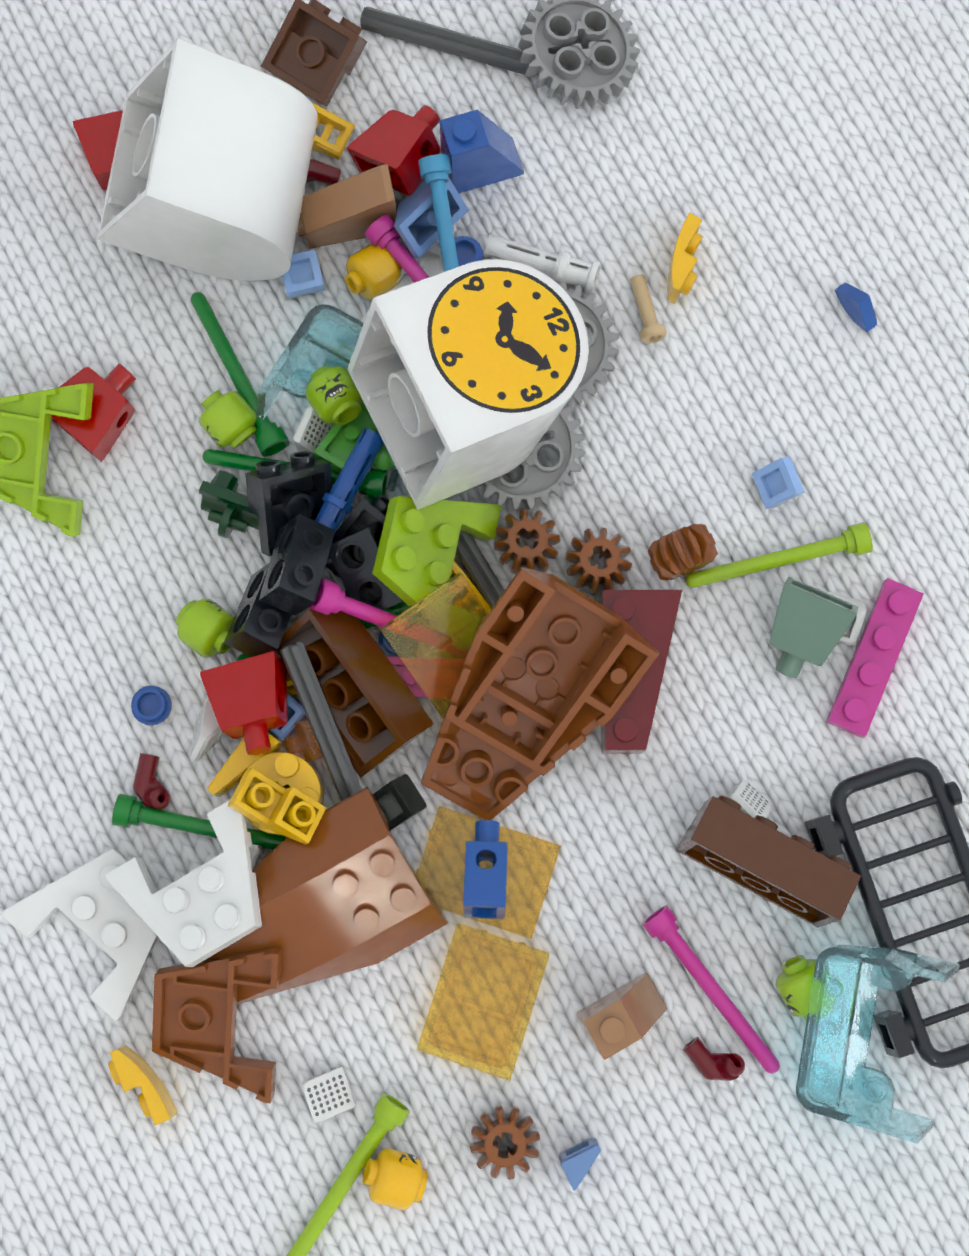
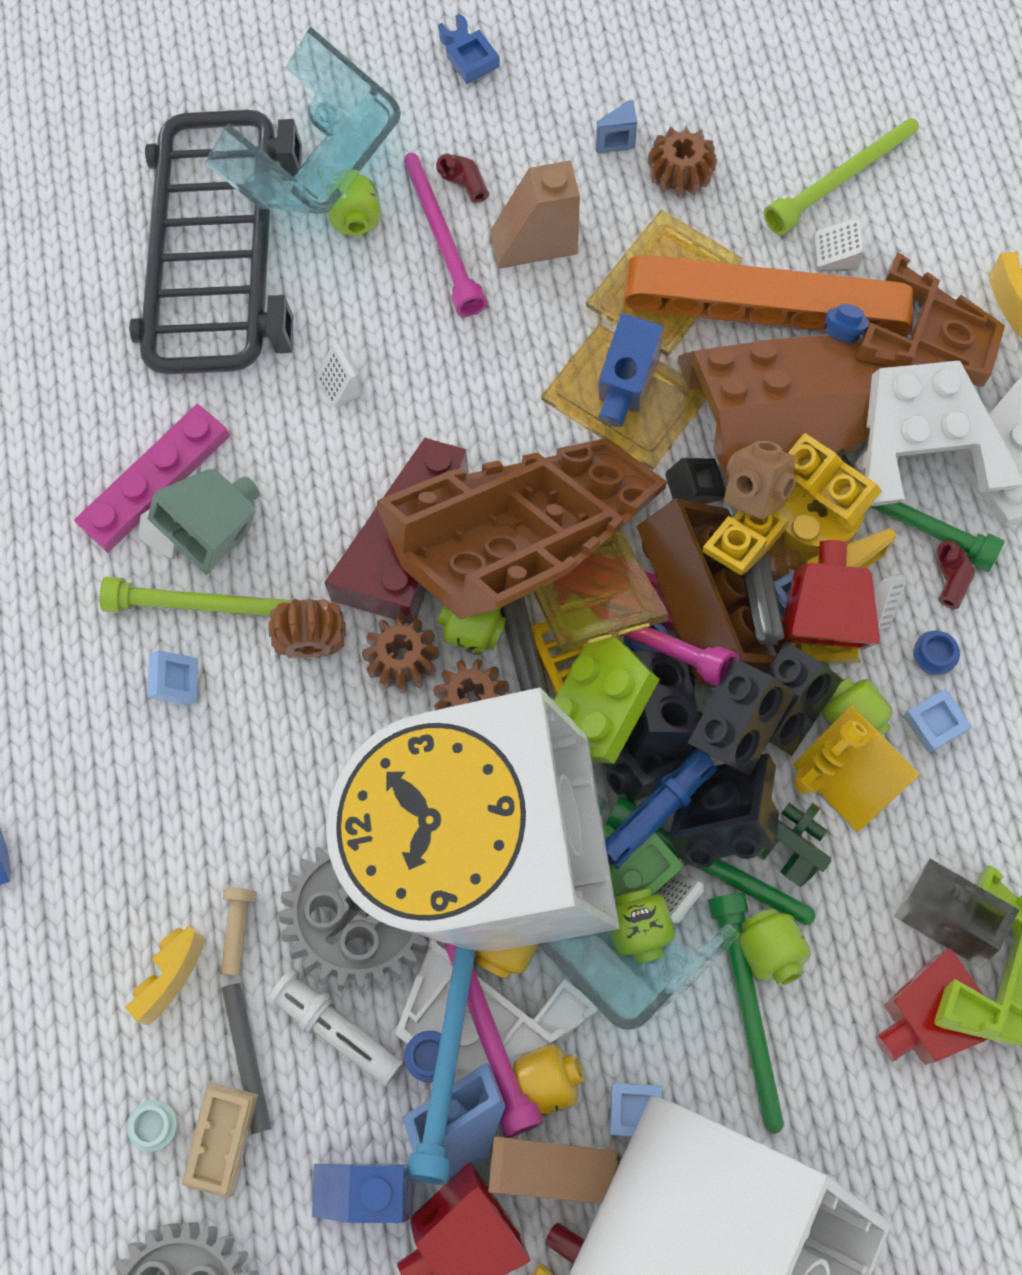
camera: 155 degrees left, 10 degrees down
(92, 482) = (956, 913): none -> clear smoke brick
(138, 643) = (937, 721): none -> light blue plate
(199, 574) = (853, 769): none -> yellow hinge
(298, 986) = (846, 323): none -> blue plate
(335, 732) = (744, 539): none -> yellow slope
(336, 781) = (760, 479): none -> medium nougat brick
(379, 1005) = (761, 294): none -> orange beam
(395, 1179) = (794, 158): yellow head -> none
(597, 163) = (220, 1139): none -> tan plate
(601, 225) = (246, 1054): none -> dark grey bar
(650, 158) = (152, 1126): none -> light aqua plate
(759, 1213) = (468, 52): none -> blue plate
(769, 862) = (344, 303): reddish brown slope -> none

